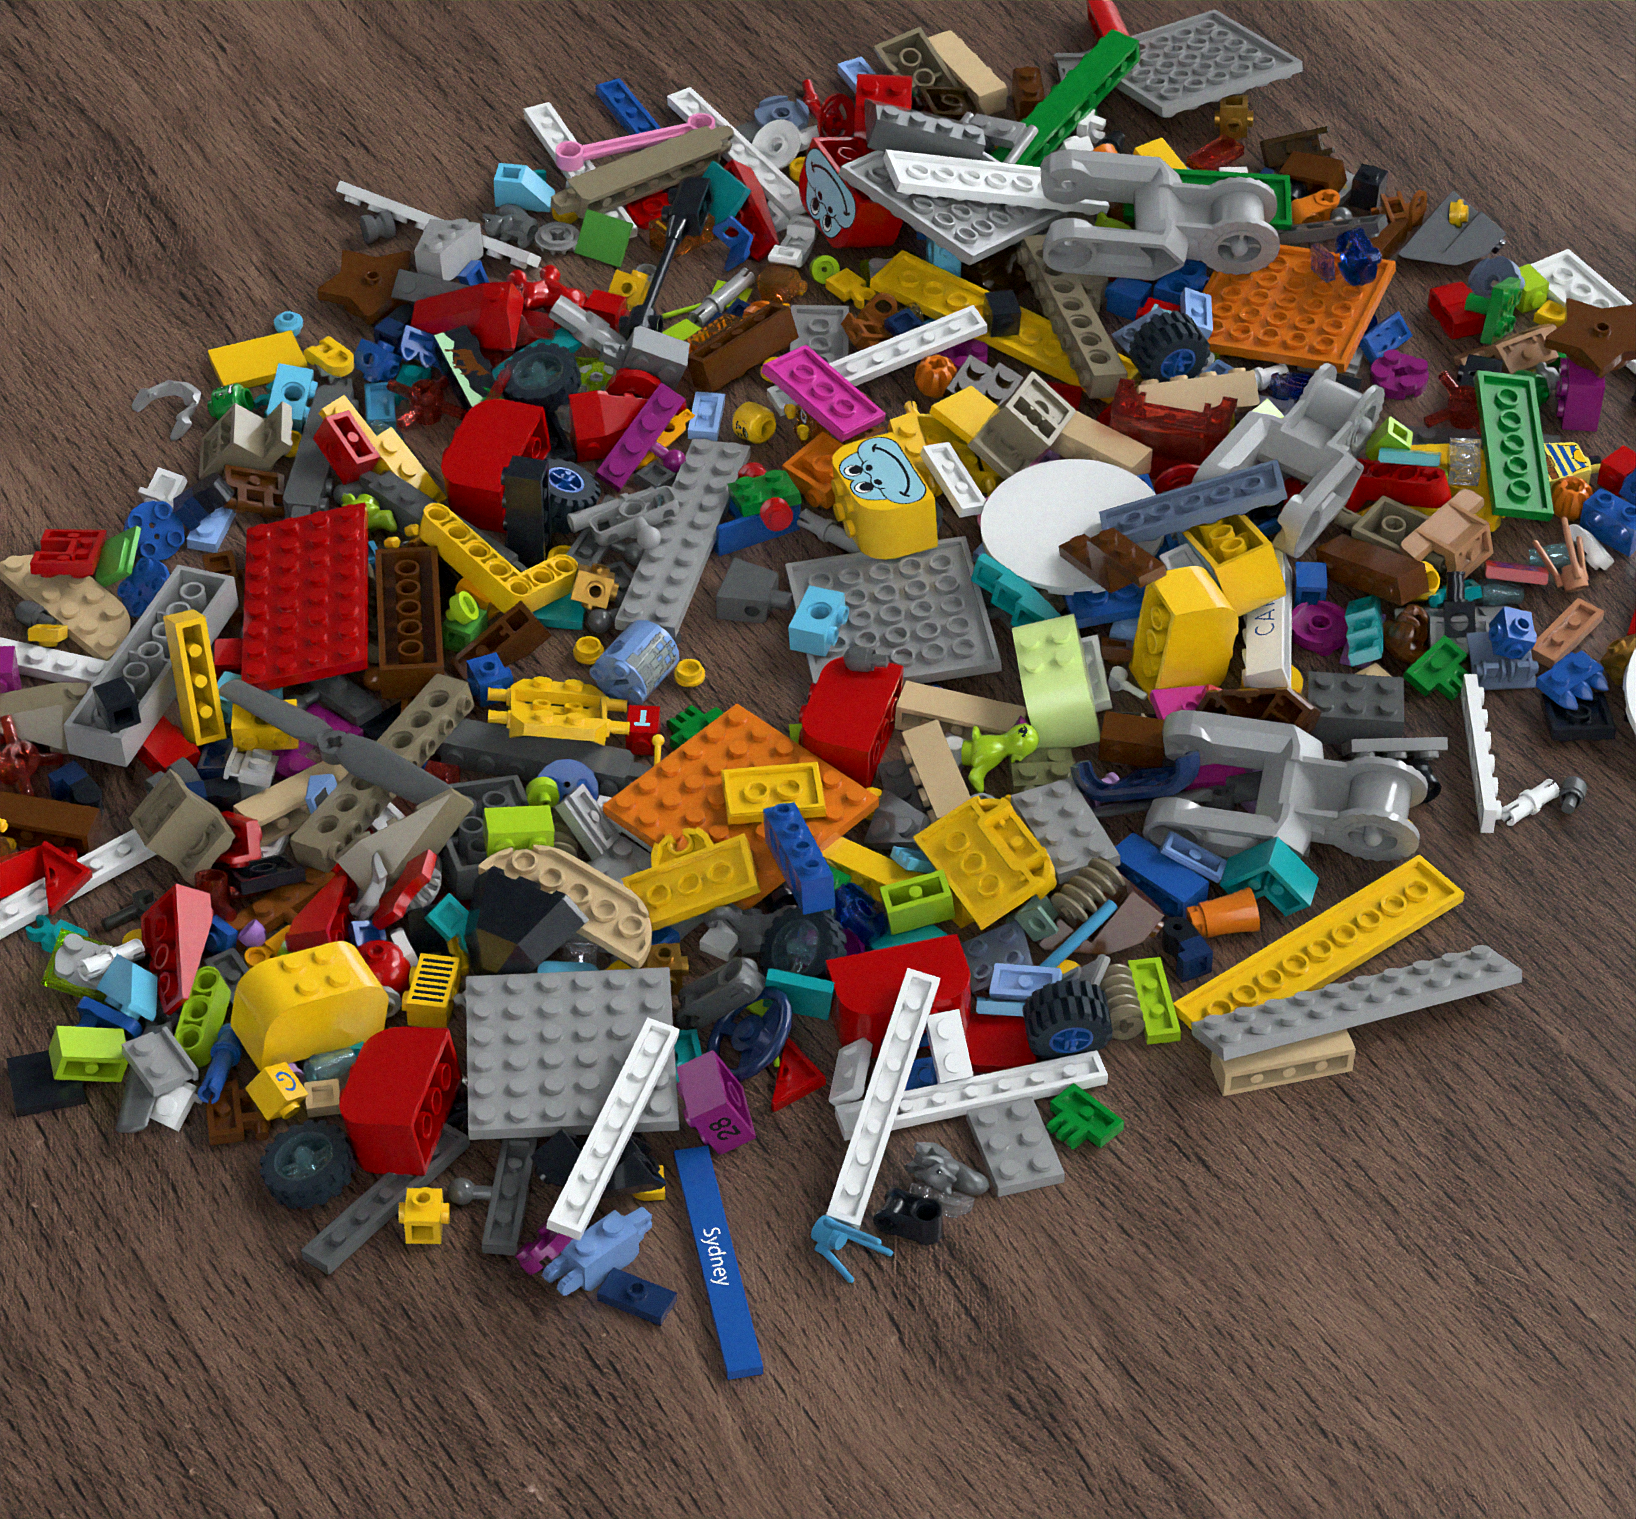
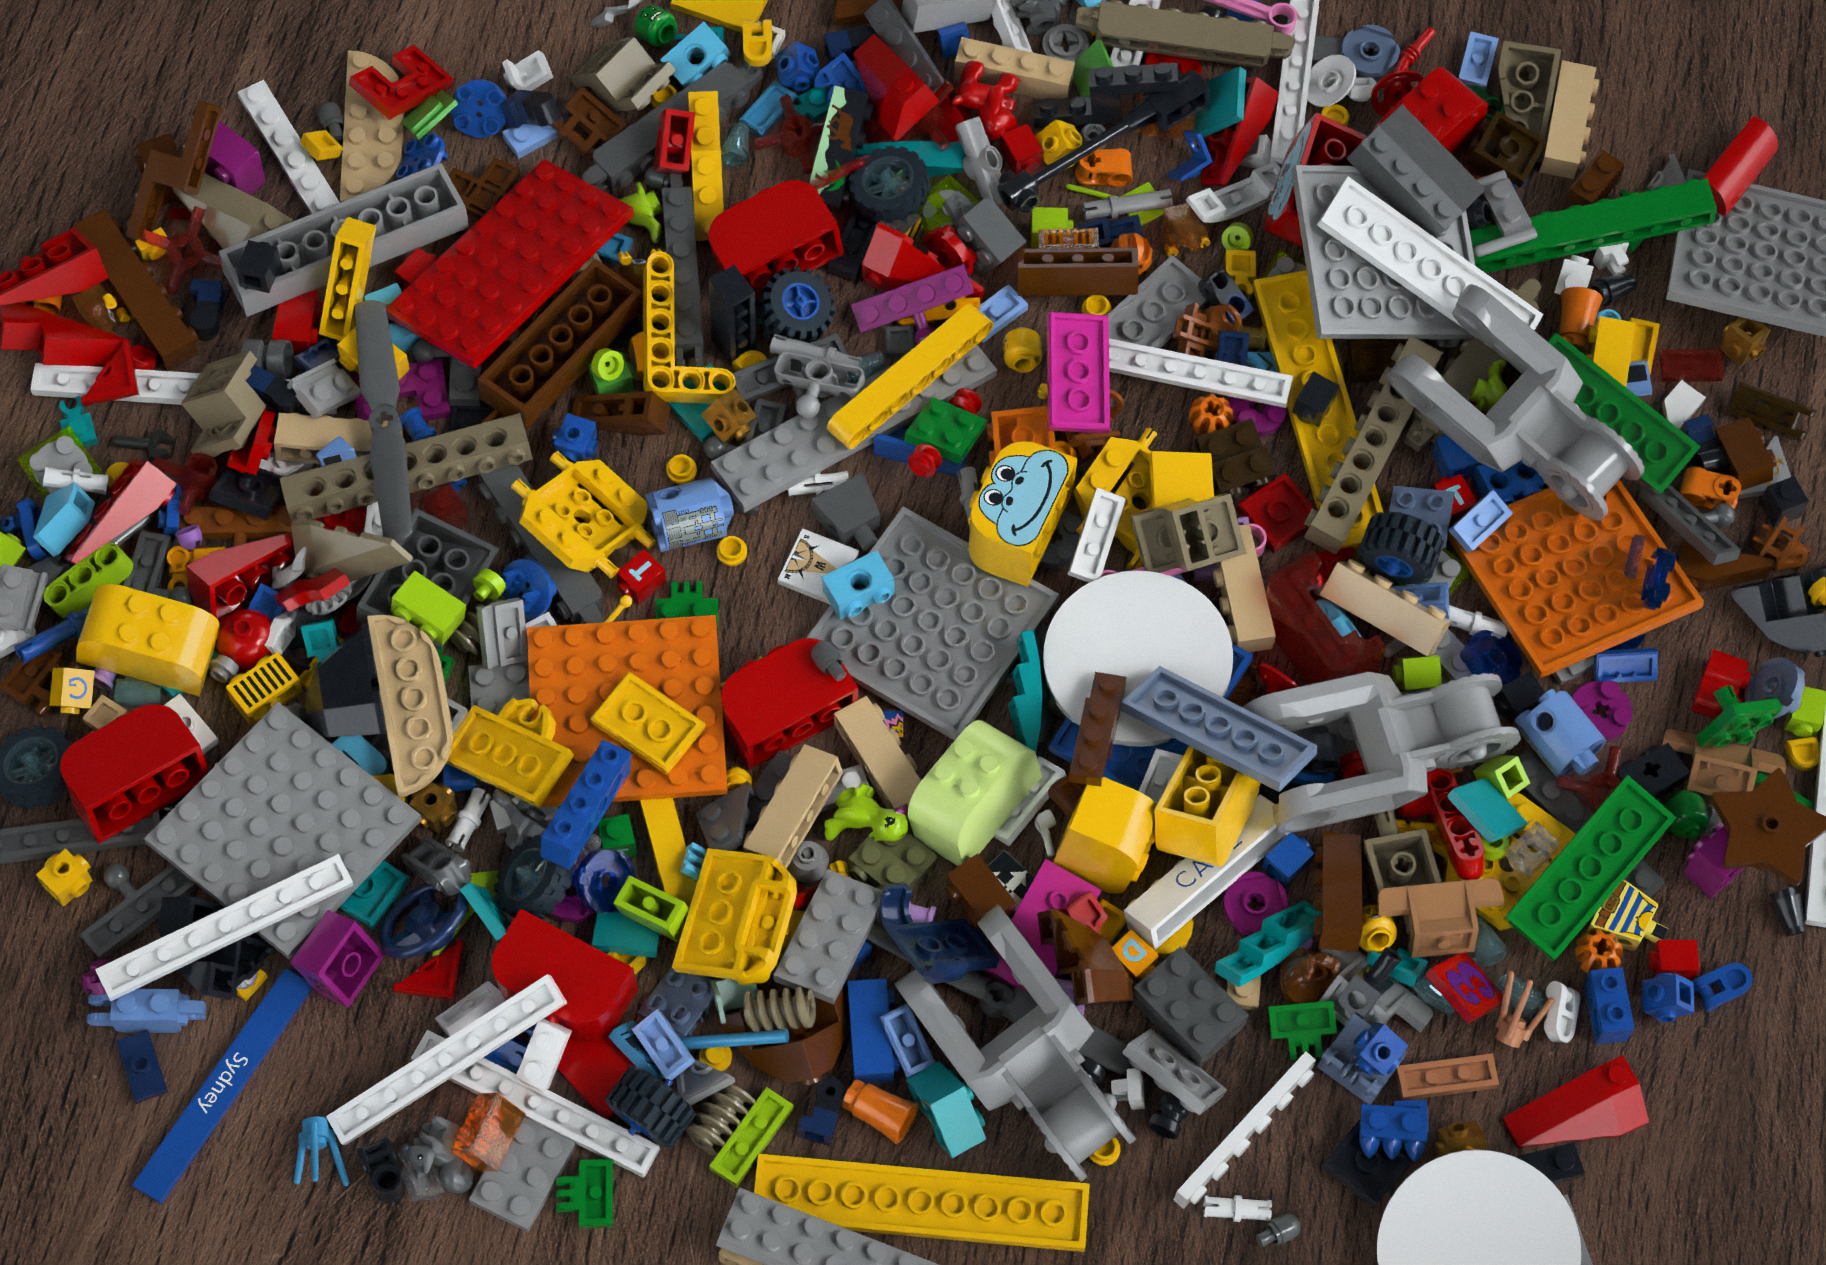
camera: 40 degrees right, 20 degrees up
(574, 258) = (1037, 74): none -> tan brick
(634, 234) = (1105, 88): none -> black bracket
(680, 287) = (1107, 167): none -> orange piece
(698, 960) = (468, 819): none -> white pin
(699, 477) = (909, 376): none -> yellow beam
(713, 585) = (834, 478): none -> white pin
(763, 643) = (810, 560): none -> white tile
(855, 295) = (1220, 289): none -> black leg
(964, 1129) = (487, 1132): none -> clear orange brick
(1405, 389) = (1571, 740): none -> medium blue cylinder
(1503, 545) = (1489, 946): none -> clear light blue cone

